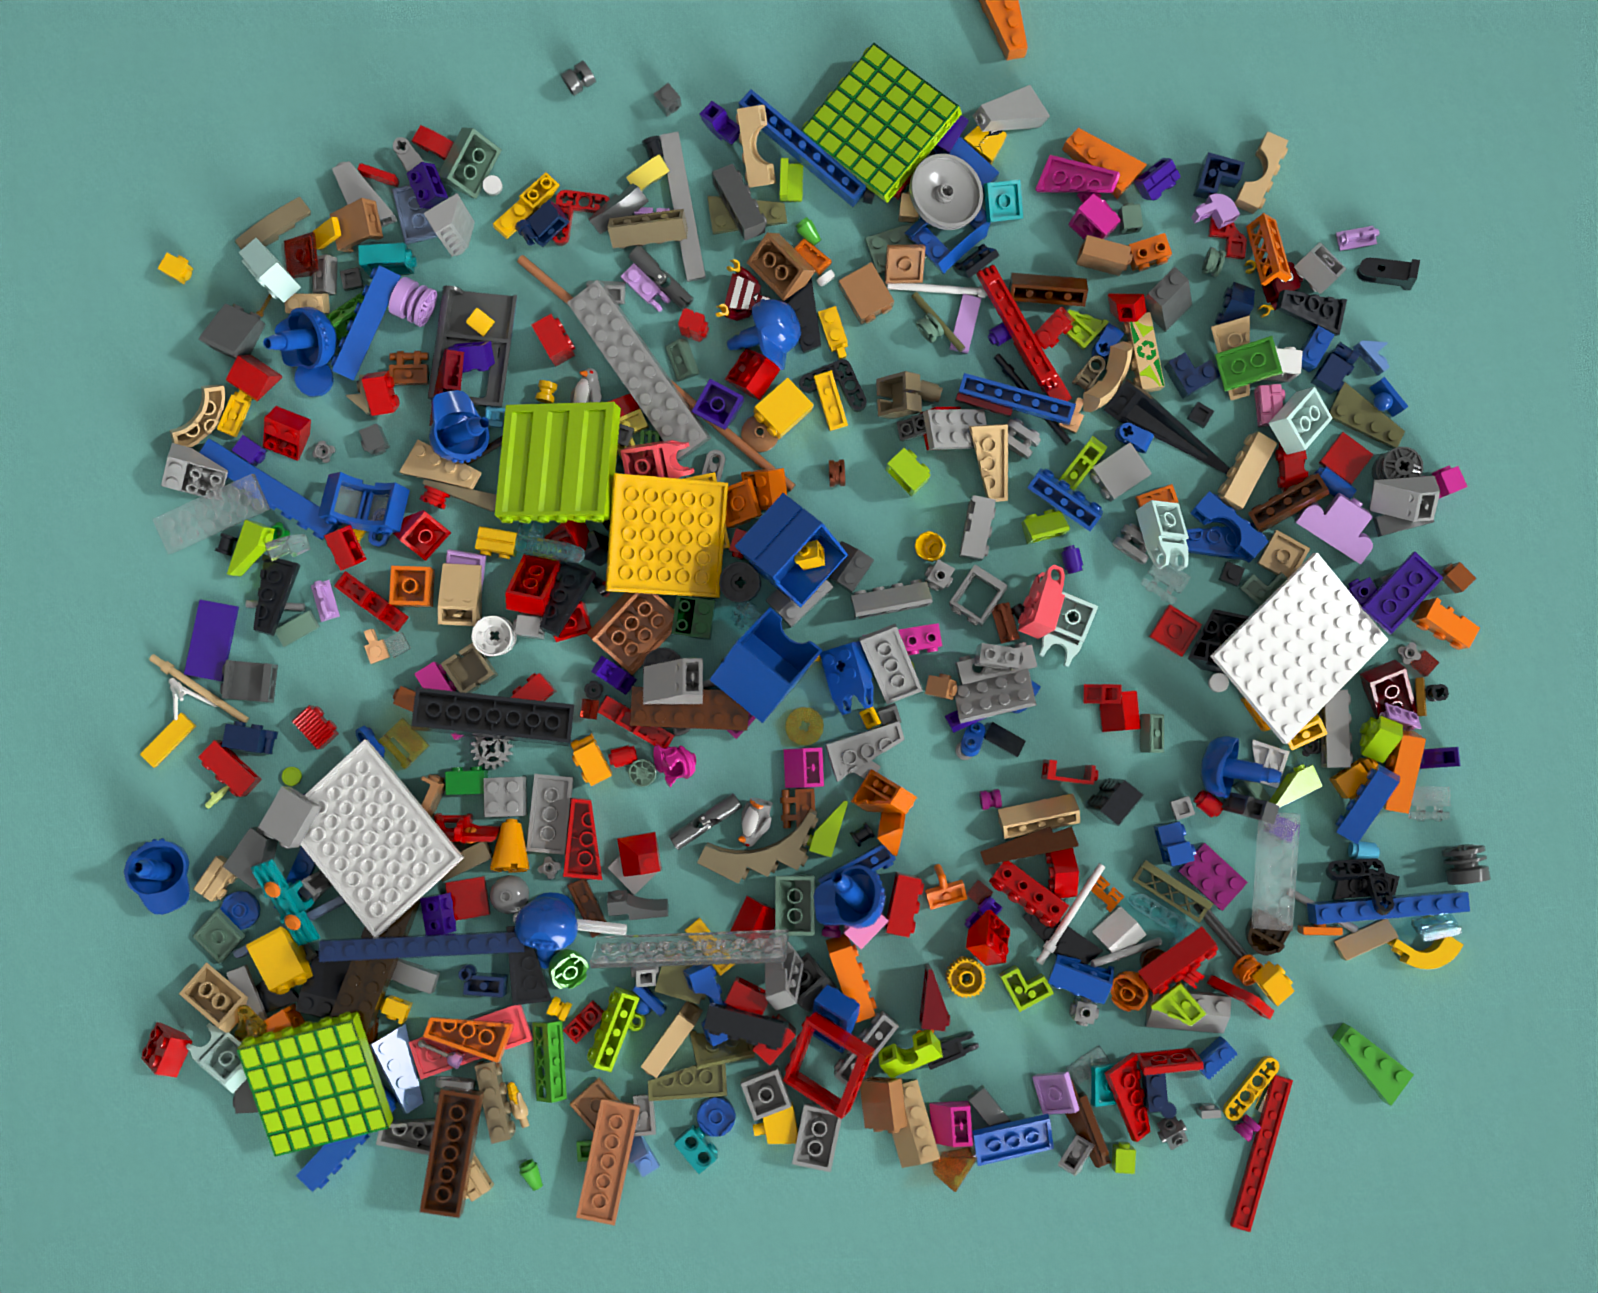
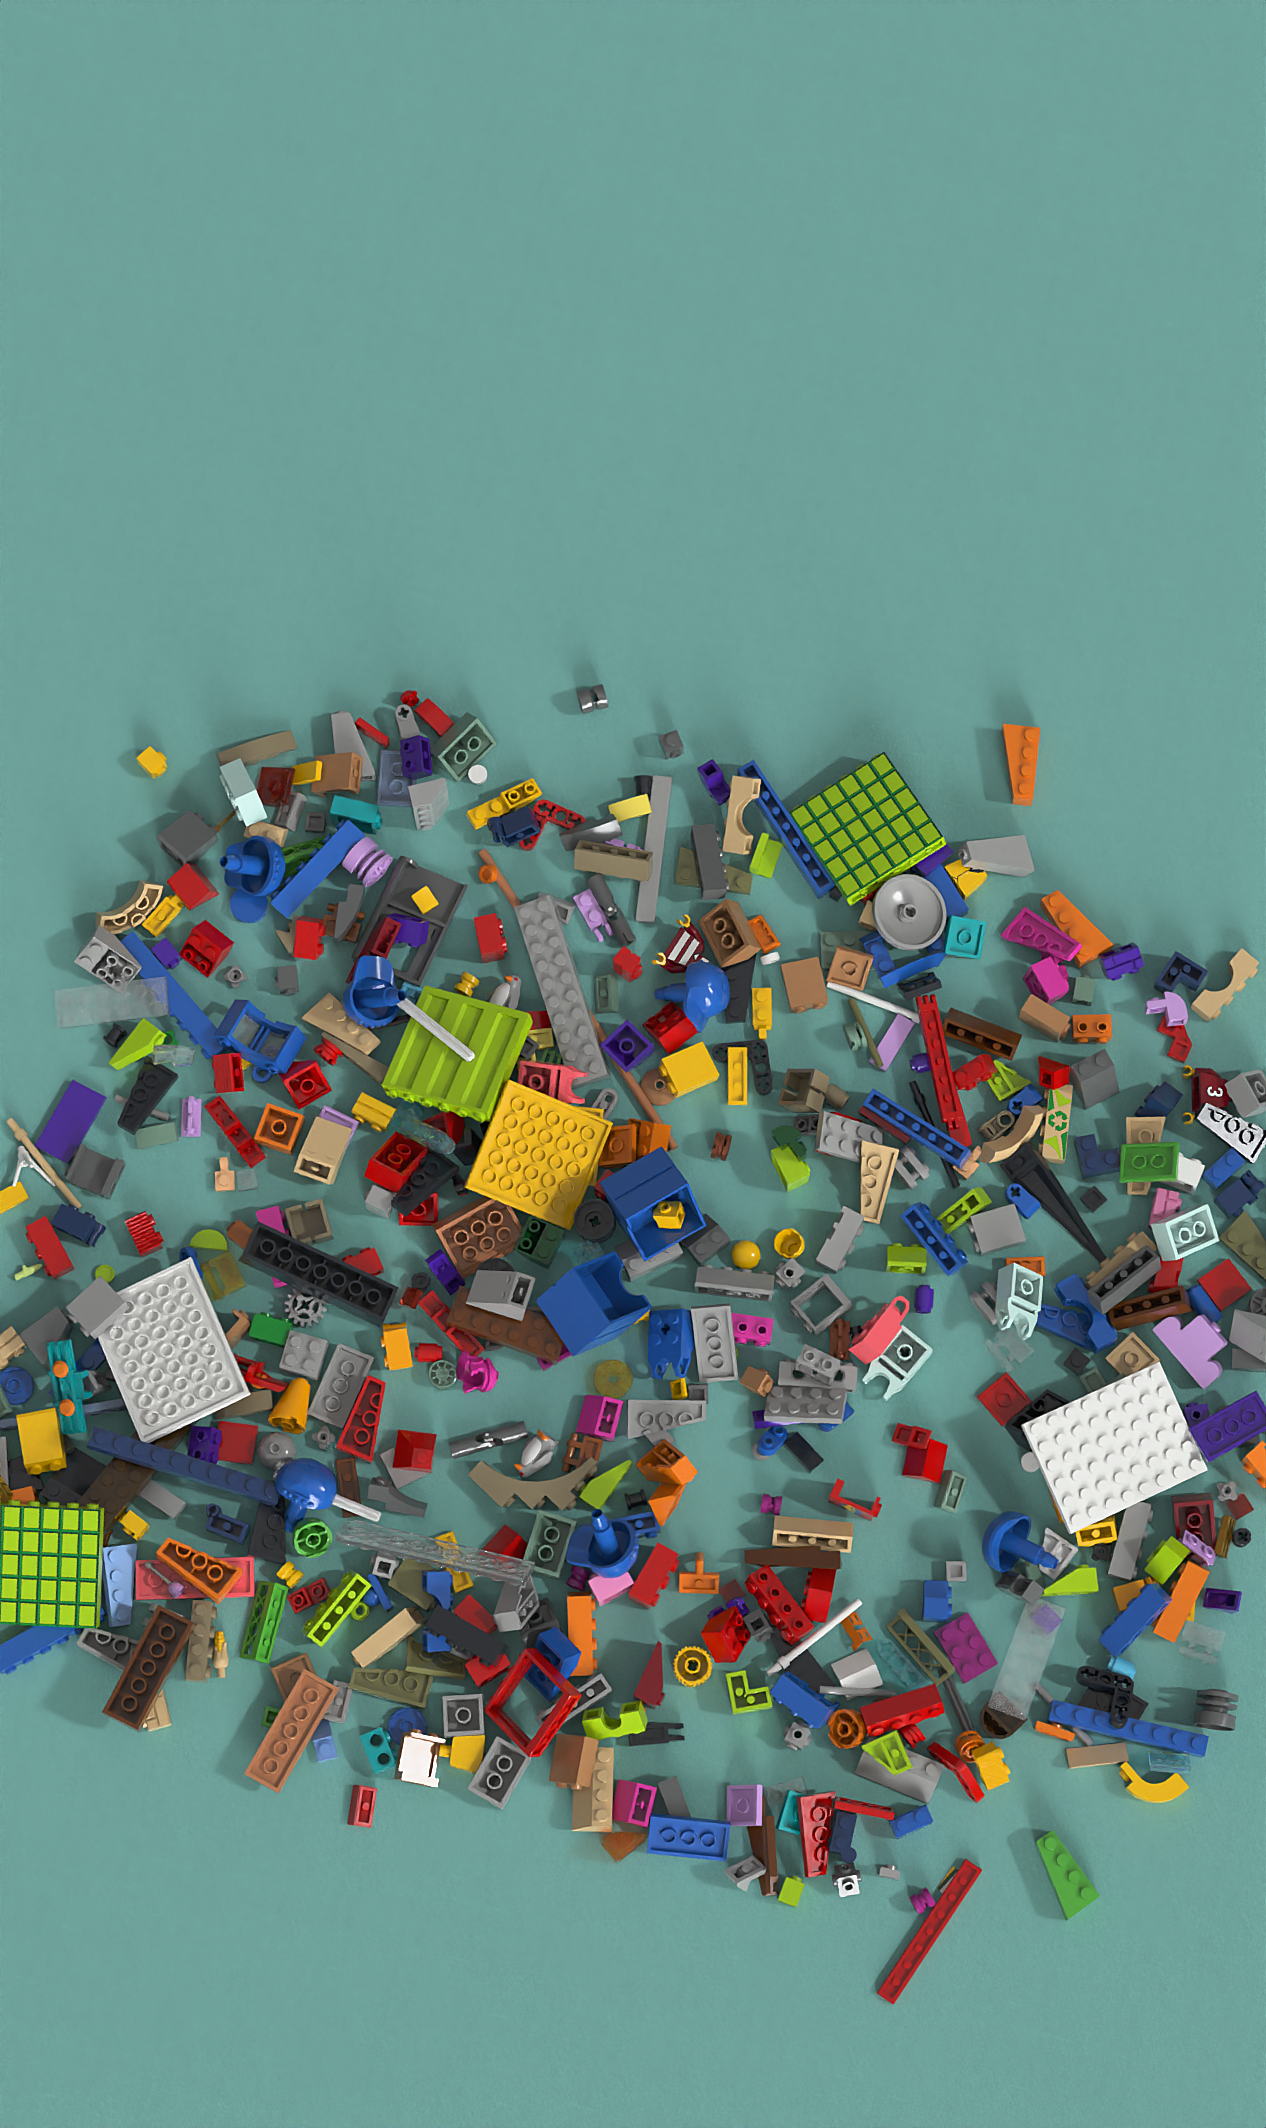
camera: 20 degrees right, 10 degrees down
(380, 712) = (210, 1240): none -> lime tile
(403, 130) = (409, 698): none -> red plate
(410, 355) = (348, 911): none -> dark grey slope
(483, 637) = (332, 1196): white wheel -> none
(530, 445) = (437, 1030): none -> white axle
(531, 1174) = (211, 1724): bright green cone -> none
(532, 278) = (487, 873): none -> orange tile
(697, 1204) = (362, 1806): none -> red slope
(736, 1147) = (418, 1758): none -> panel
(808, 231) = (767, 909): bright green cone -> none
(891, 568) = (745, 1254): none -> yellow hair
(900, 445) = (787, 1137): none -> dark green brick
(1009, 918) = (758, 1625): none -> dark grey brick
(1113, 801) = (887, 1536): black brick -> none
(1208, 803) = (983, 1575): red brick -> none
(1213, 262) = (1149, 1055): sand green wheel -> none
(1247, 1085) = (937, 1863): yellow beam -> none
(1260, 484) = (1124, 1279): none -> dark grey brick
(1272, 245) = (1209, 1059): orange fence -> none

